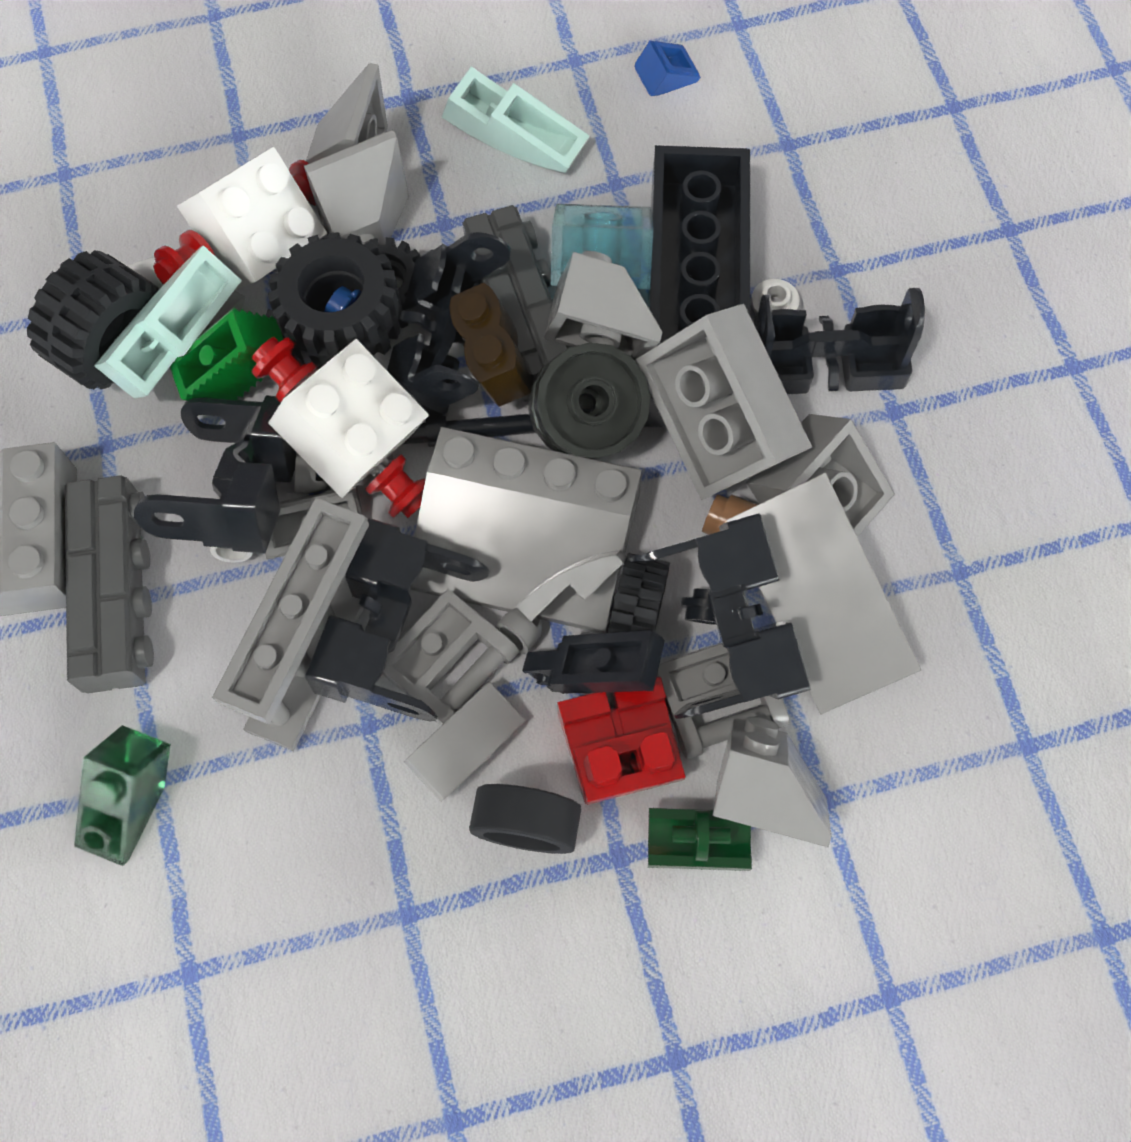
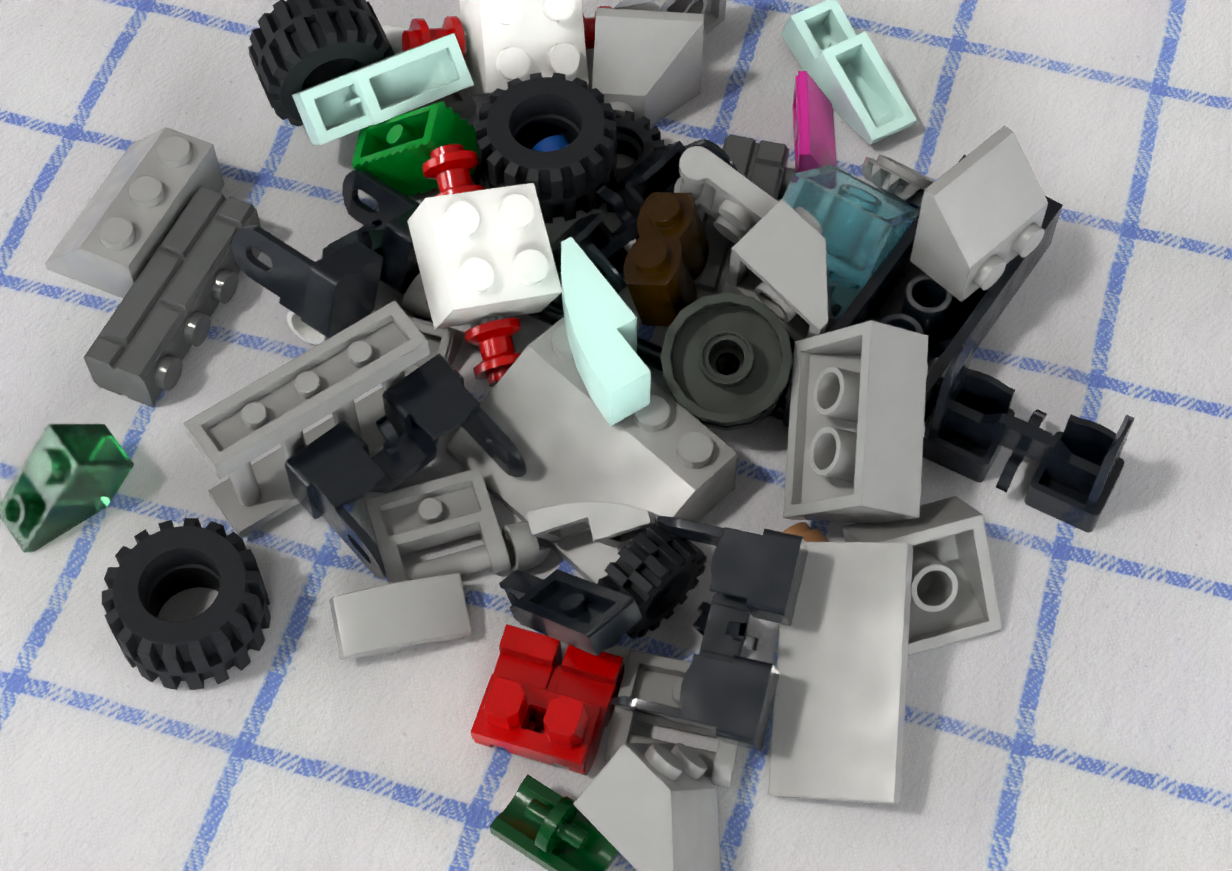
camera: 30 degrees right, 10 degrees down
(258, 805) = (176, 562): none -> black tyre
(487, 434) = (602, 337): none -> light aqua slope
(514, 270) = (722, 192): none -> light grey plate
(517, 185) = (812, 125): none -> dark pink slope
(525, 818) = (402, 713): black tyre -> none
(614, 190) = (896, 178): none -> light grey gear
(665, 68) = (1047, 93): blue slope -> none
(713, 190) = (979, 217): none -> light grey slope
(778, 289) = (1009, 360): white plate -> none

